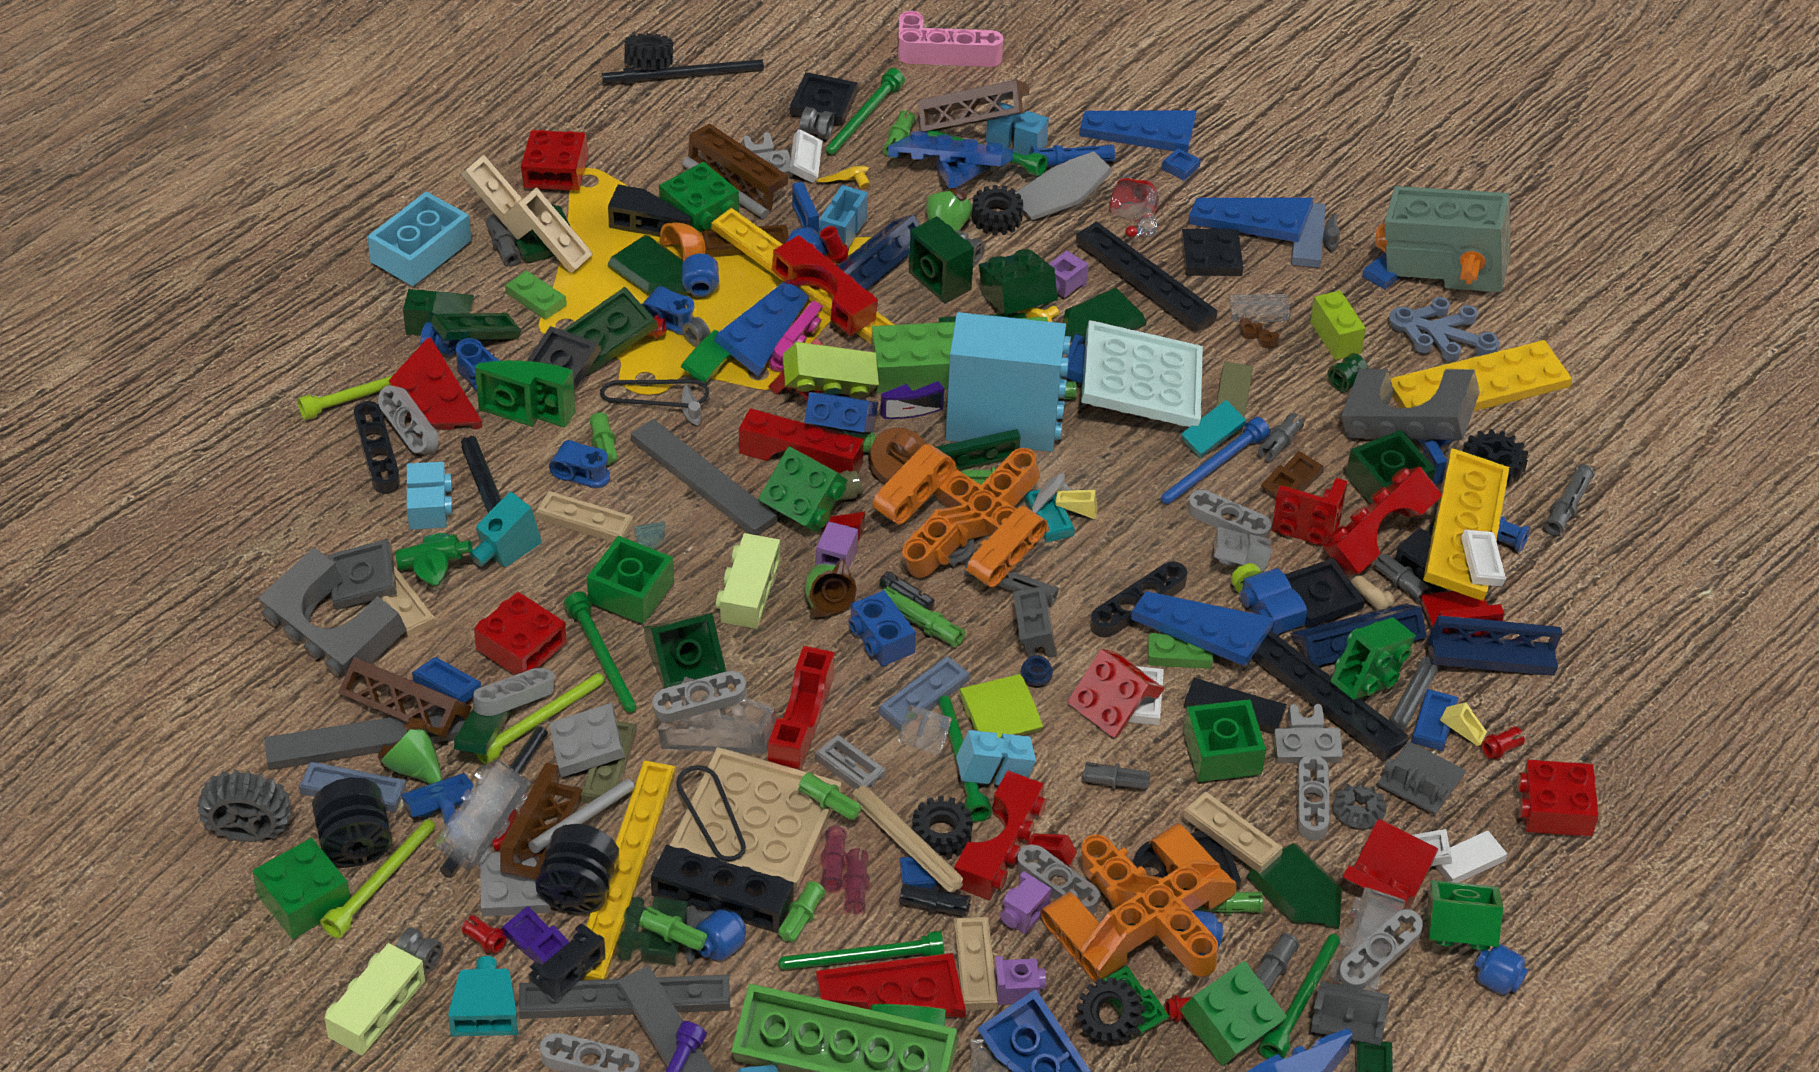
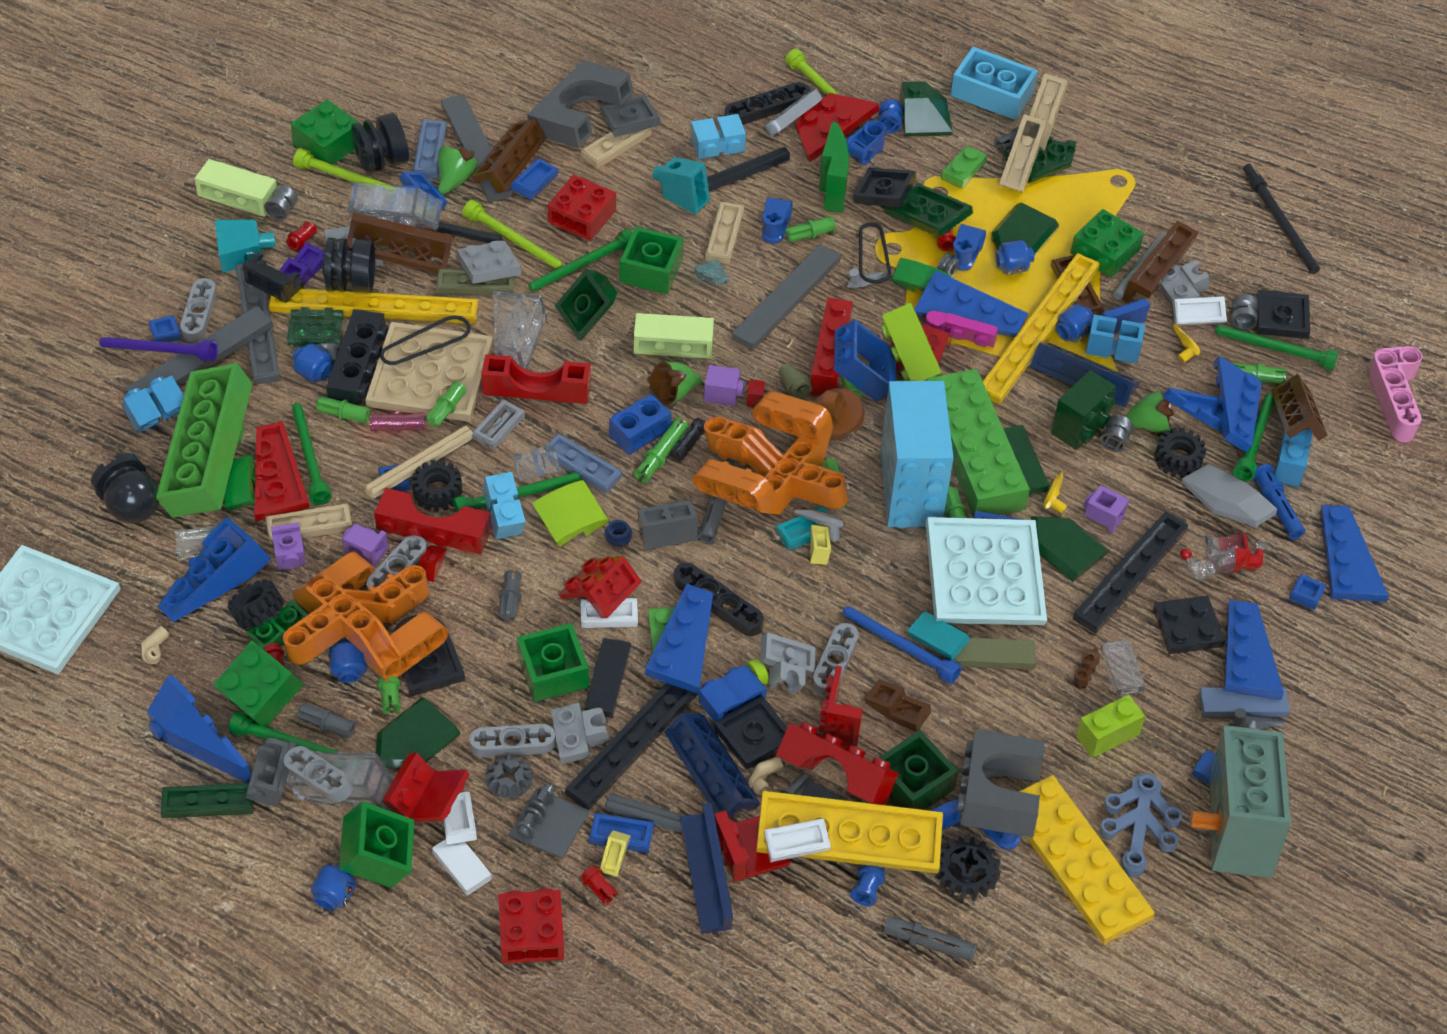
camera: 80 degrees right, 5 degrees up
(244, 806) = (385, 85): dark grey gear -> none
(432, 556) = (654, 146): green plant -> none
(476, 326) = (904, 130): dark green tile -> none
(479, 732) = (491, 201): dark green tile -> none
(513, 691) = (516, 197): light grey beam -> none
(554, 160) = (1121, 147): red brick -> none
(584, 813) = (411, 267): light grey bar -> none
(642, 211) = (1080, 207): black slope -> none
(648, 51) = (1287, 186): black tyre -> none
(672, 928) = (304, 328): bright green axle -> none
(684, 235) = (1049, 242): orange helmet -> none
(705, 684) = (519, 313): light grey beam -> none
(803, 264) = (1003, 352): red arch -> none
(803, 490) = (771, 348): green brick -> none
(835, 248) = (1078, 336): red pin -> none
(856, 881) = (376, 438): clear pink pin -> none
(935, 900) = (361, 500): black pin -> none
(983, 449) = (859, 465): dark green tile -> none
(1018, 281) = (1074, 467): dark green brick -> none
(1232, 832) = (456, 678): tan tile -> none
(1281, 437) = (946, 691): dark grey pin -> none
(1344, 374) = (1054, 741): dark green wheel -> none
(1373, 658) = (659, 761): green brick -> none

